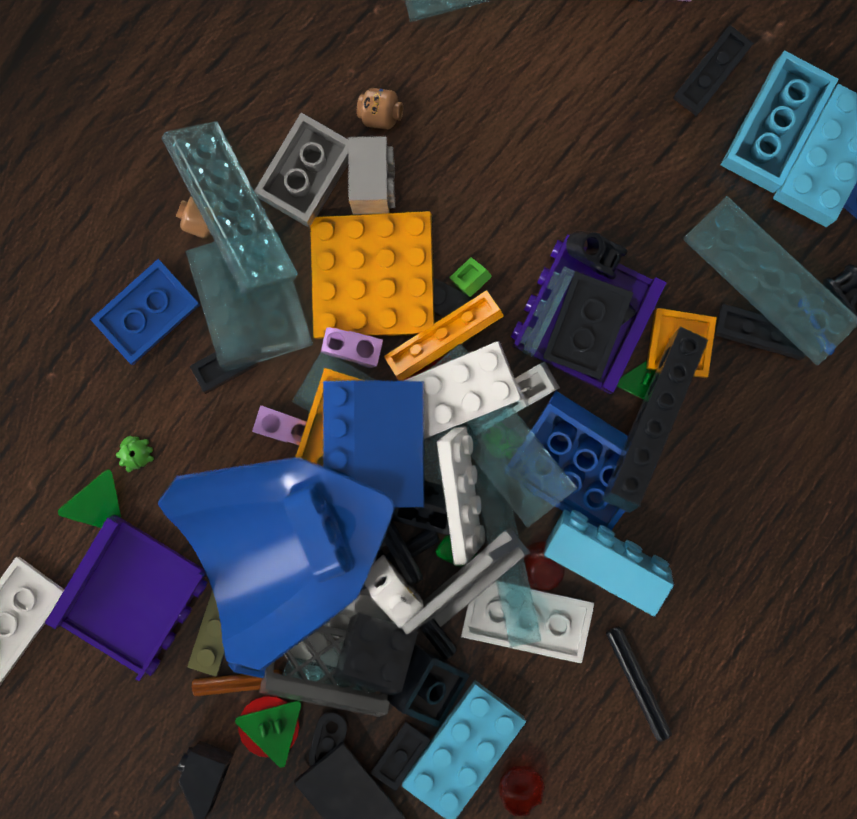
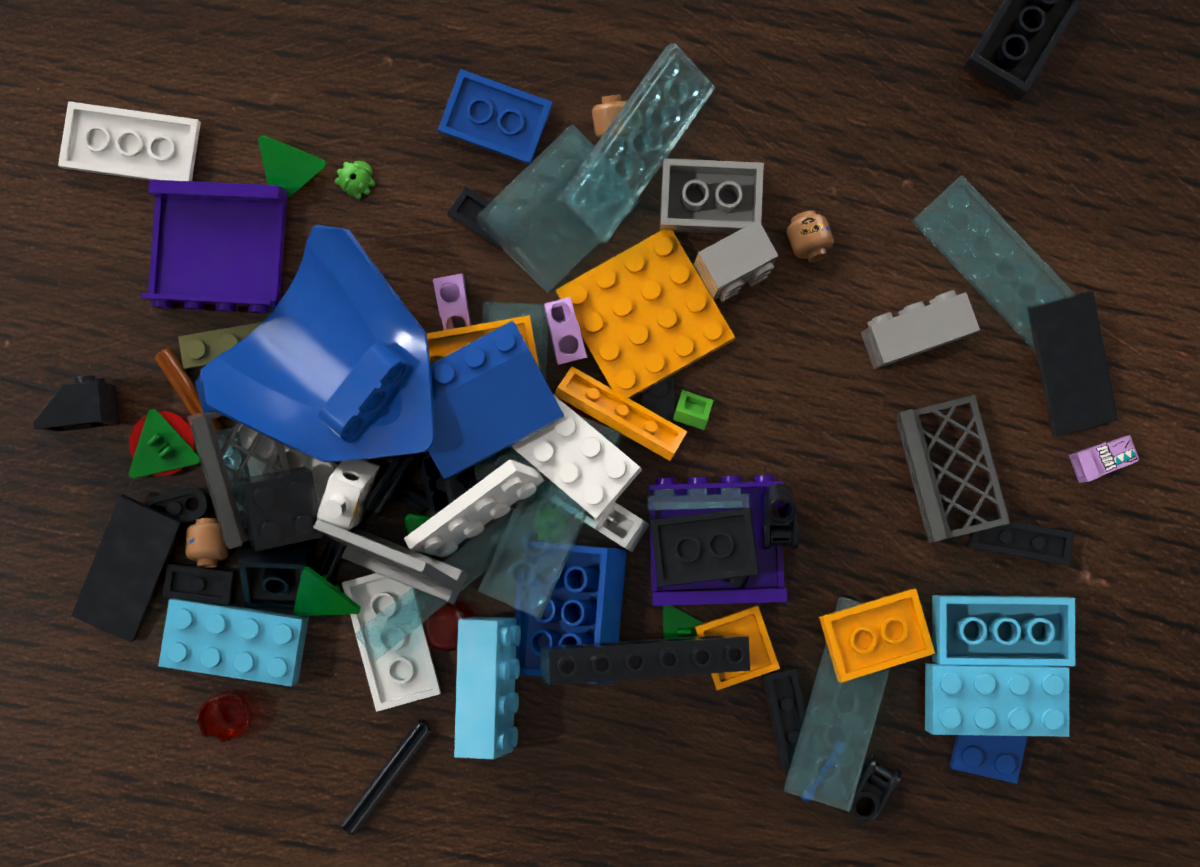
camera: 60 degrees right, 0 degrees up
(370, 732) = (206, 543): none -> medium nougat head
(464, 660) = (320, 597): none -> green piece
(502, 59) = (919, 328): none -> light grey brick
(627, 121) = (923, 475): none -> dark grey fence
(731, 224) = (877, 635): none -> light orange plate

